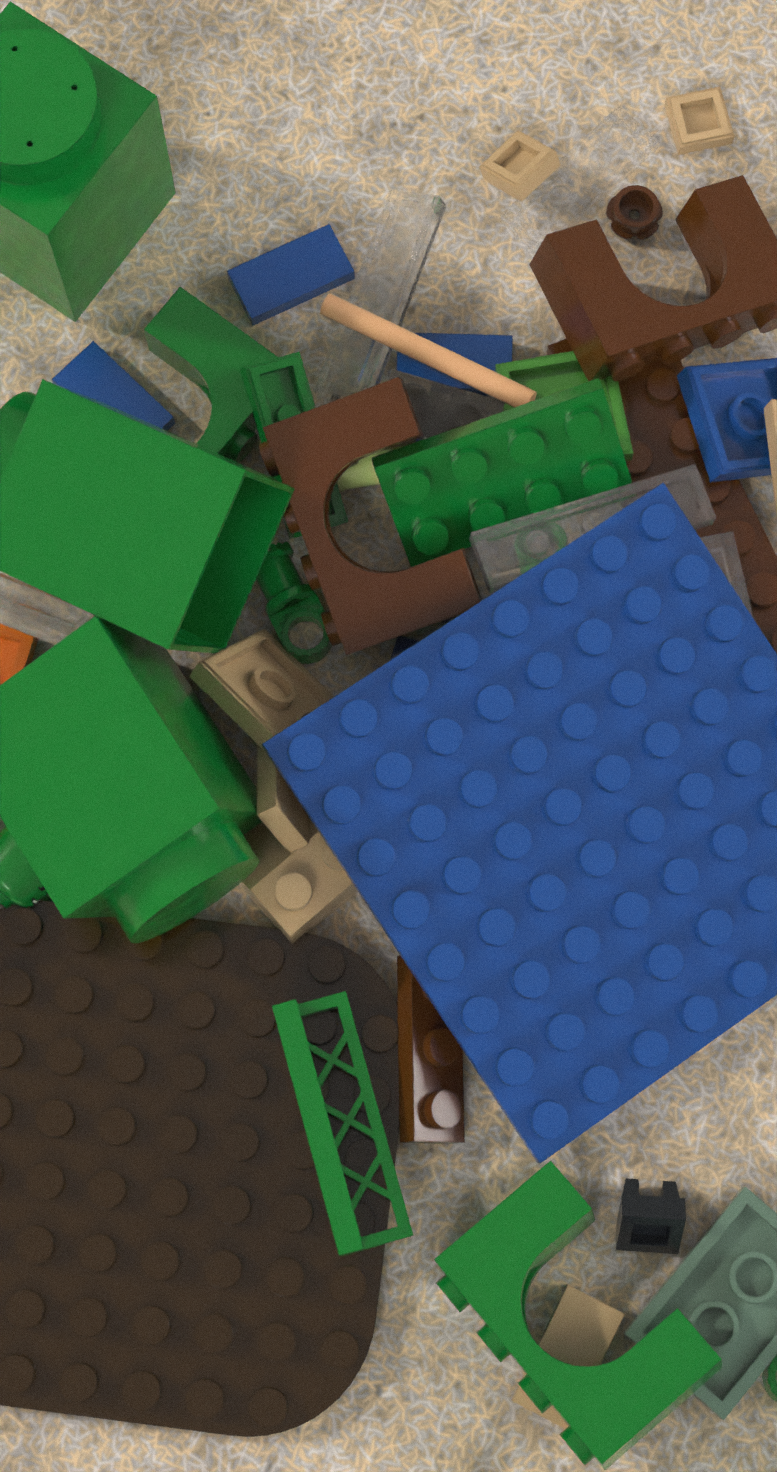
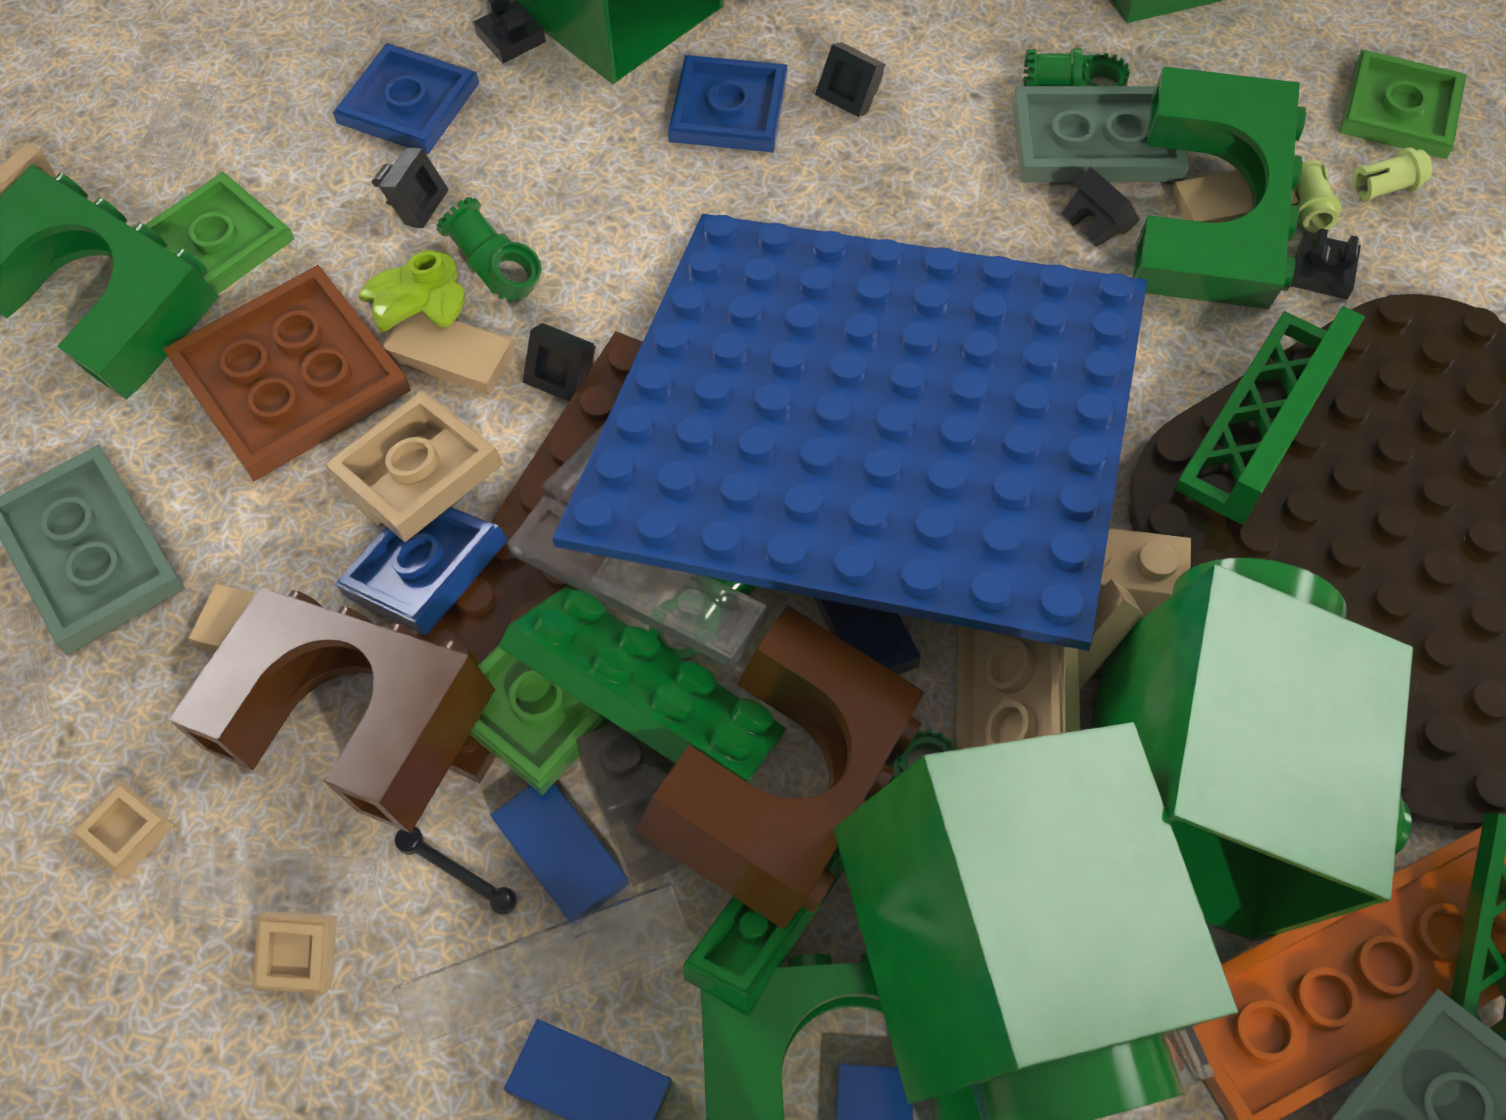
camera: 130 degrees left, 15 degrees down
(426, 351) = (580, 858): light nougat bar -> none
(428, 1069) = (1168, 395): reddish brown plate -> none
(436, 1358) = (1326, 264): none -> black tile
(451, 308) = (502, 899): none -> black hinge
(506, 1422) = (1316, 202): none -> yellowish green pin
(634, 199) = (260, 797): reddish brown plate -> none

